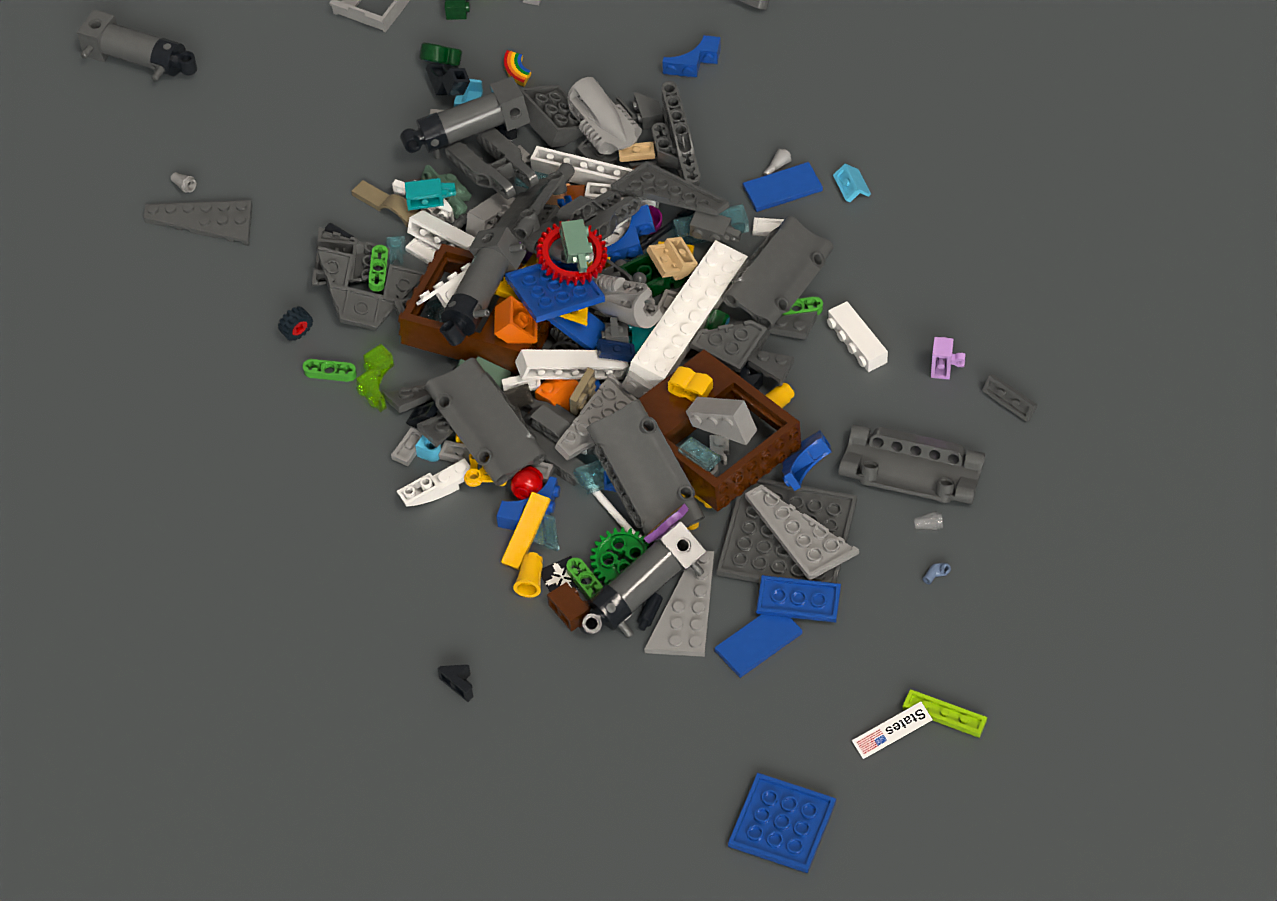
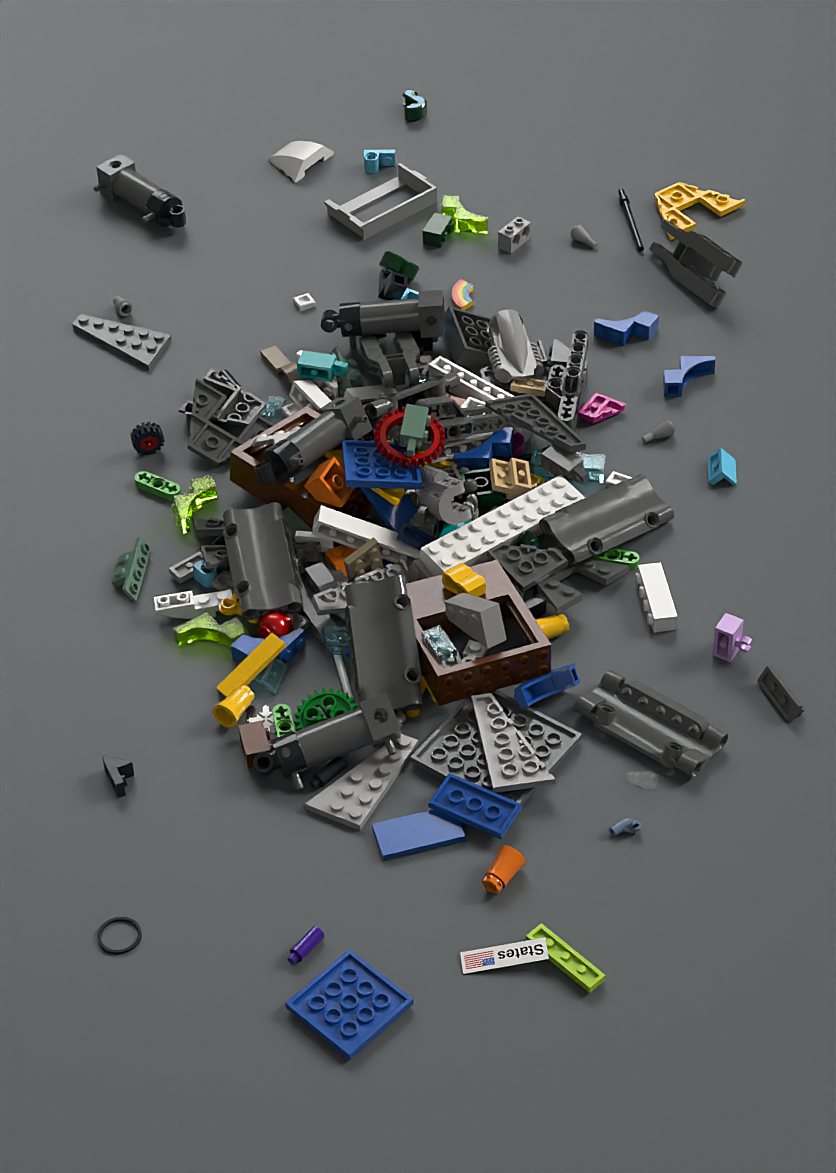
camera: 20 degrees right, 10 degrees down
(353, 468) = (131, 569): none -> sand green bracket
(364, 122) = (304, 302): none -> white tile
(378, 262) = (237, 429): bright green beam -> none
(460, 505) = (206, 629): none -> clear neon green arch
(545, 849) = (116, 919): none -> black piece
(666, 523) = (392, 692): medium lavender tile -> none
(711, 152) = (599, 408): none -> dark pink wing
(715, 782) = (305, 944): none -> dark purple cylinder
(772, 85) = (689, 368): none -> blue arch
(782, 186) = (654, 454): blue tile -> none
(852, 650) = (503, 869): none -> orange plant

